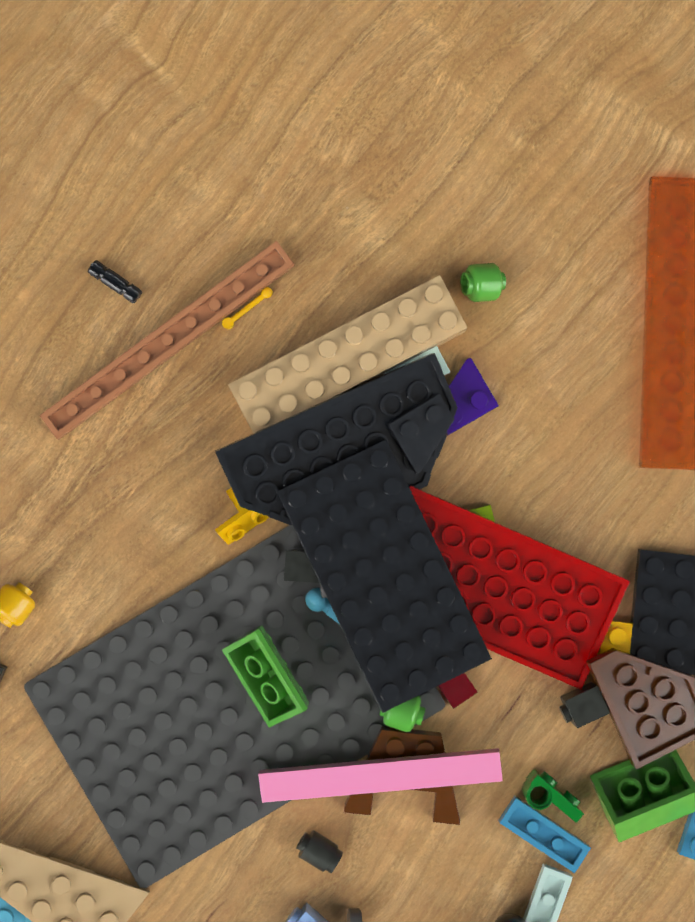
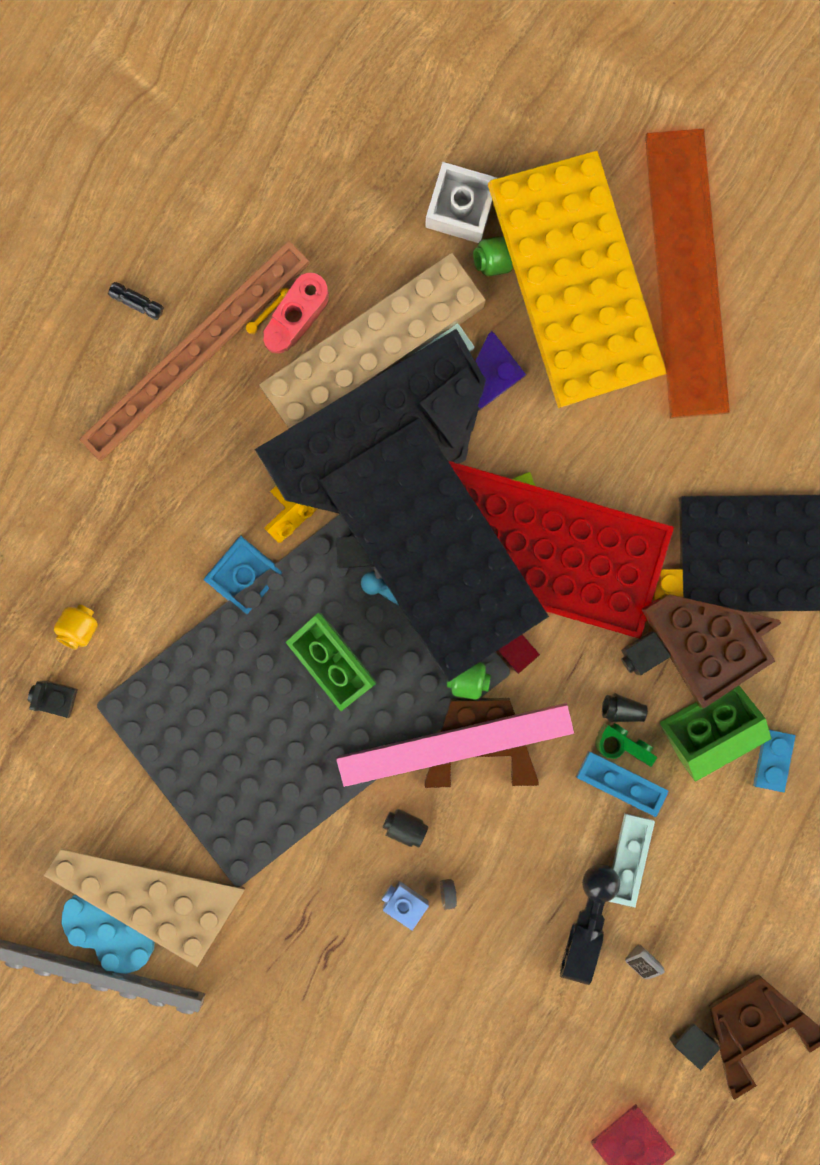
camera: 10 degrees left, 0 degrees up
(184, 567) = (238, 570): none -> dark azure tile
(255, 333) = (281, 333): none -> coral piece
(455, 224) = (460, 203): none -> white brick
(553, 758) = (621, 709): none -> pearl dark grey cone
(563, 316) = (577, 278): none -> yellow plate

